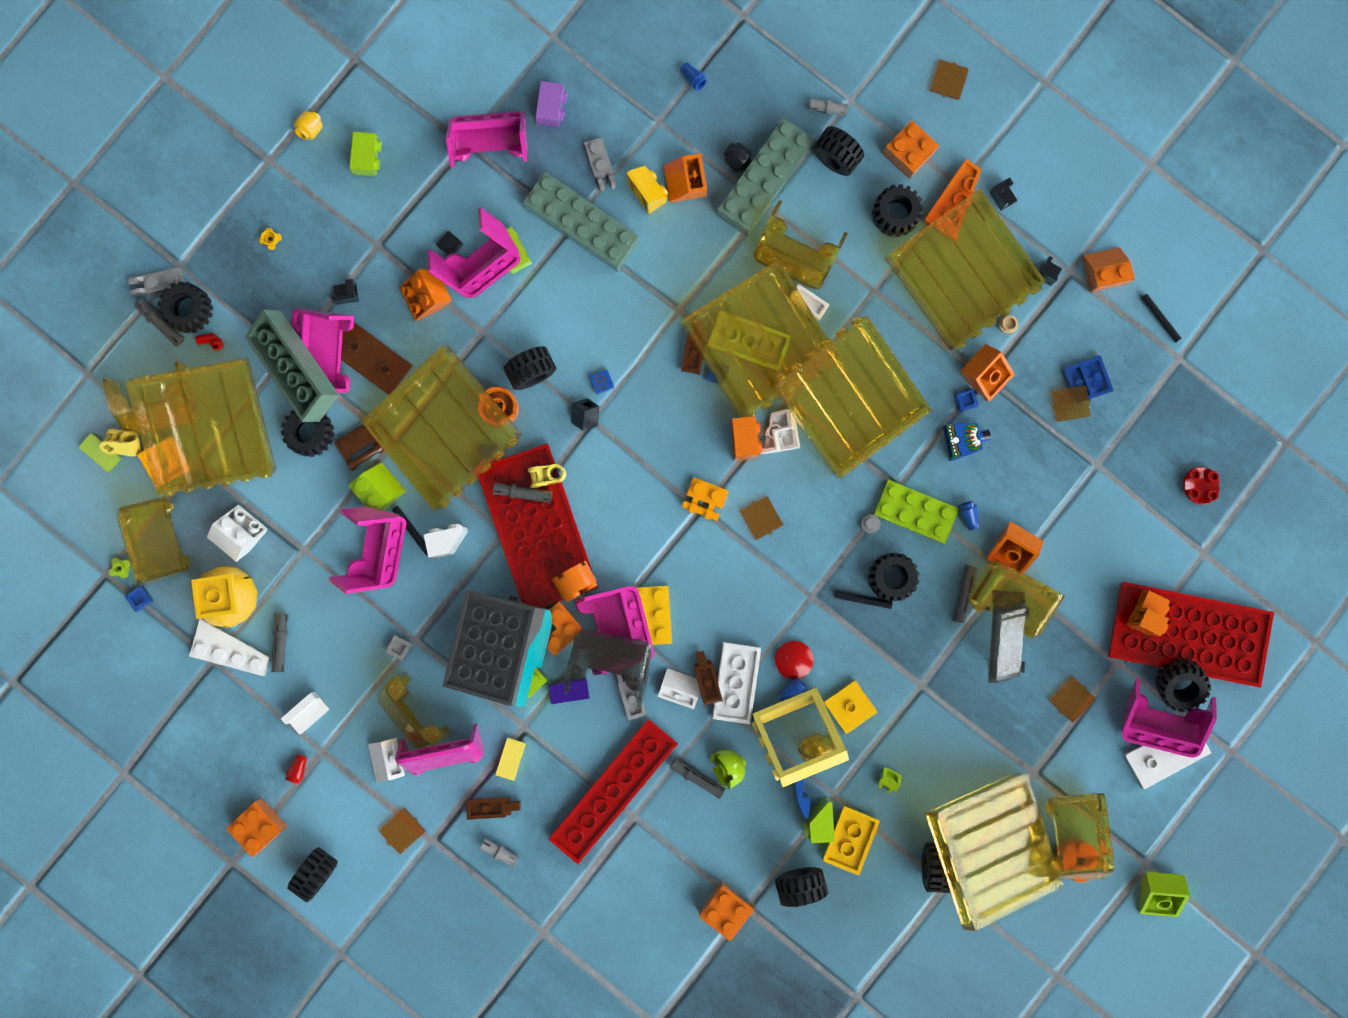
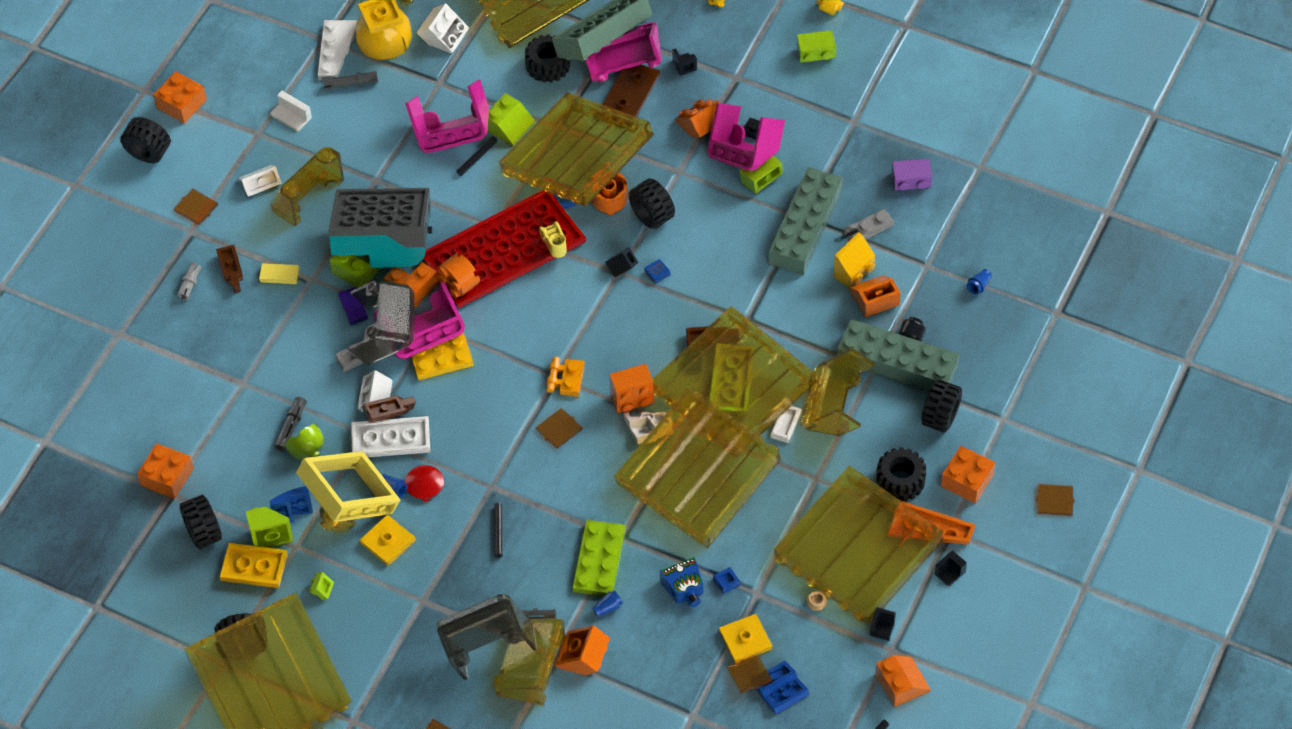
camera: 85 degrees right, 30 degrees down
(296, 770) = (237, 116): red cone -> none
(354, 442) = (545, 95): reddish brown plate -> none
(399, 647) = (365, 167): light grey plate -> none
(440, 755) = (274, 211): dark pink windscreen -> none
(444, 542) = (471, 175): white slope -> none
(486, 133) = (864, 126): dark pink windscreen -> none
(515, 491) = (532, 218): dark grey pin -> none
(613, 791) = (265, 358): red plate -> none
(828, 107) = (988, 398): light grey pin -> none
(870, 524) = (576, 519): light grey plate -> none
(909, 572) = (526, 559): black tyre -> none
(987, 372) = (759, 589): orange slope -> none
(1031, 398) = (745, 638): none -> yellow plate

